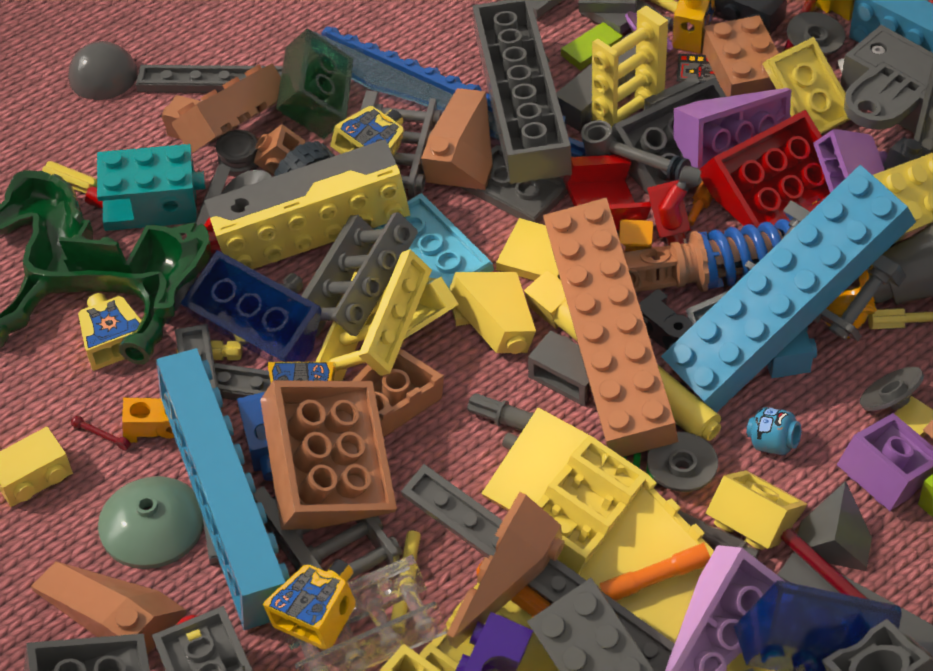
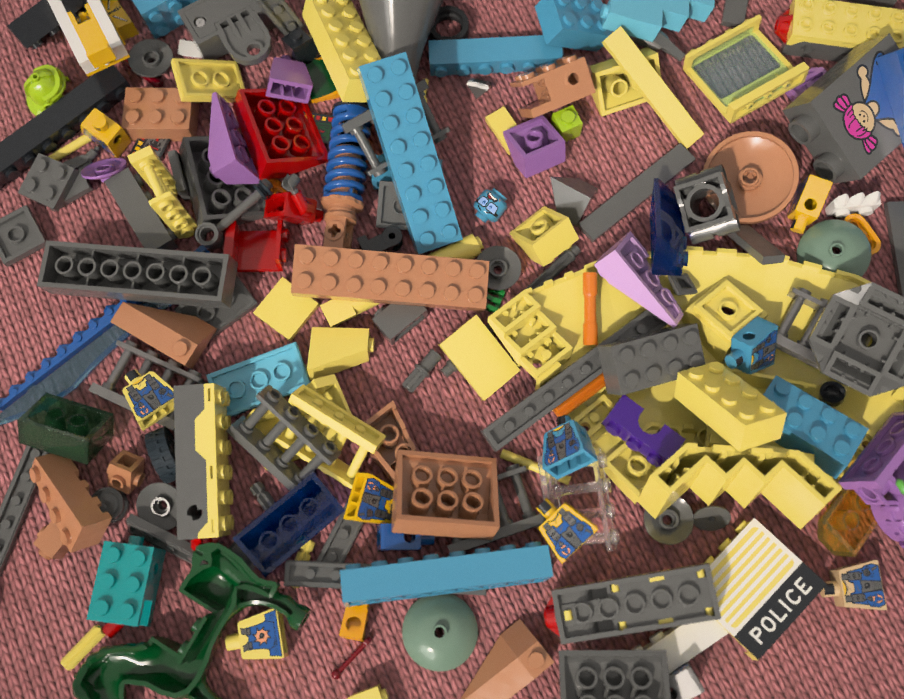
camera: 75 degrees left, 25 degrees up
(429, 575) = (567, 448): none -> torso
(522, 552) = (574, 390): nougat wedge -> none
(580, 50) = (95, 213): lime tile -> none
(635, 234) = (314, 235): light orange slope -> none
(819, 564) = (601, 211): dark red bar -> none
(892, 389) = (474, 129): dark grey dish -> none

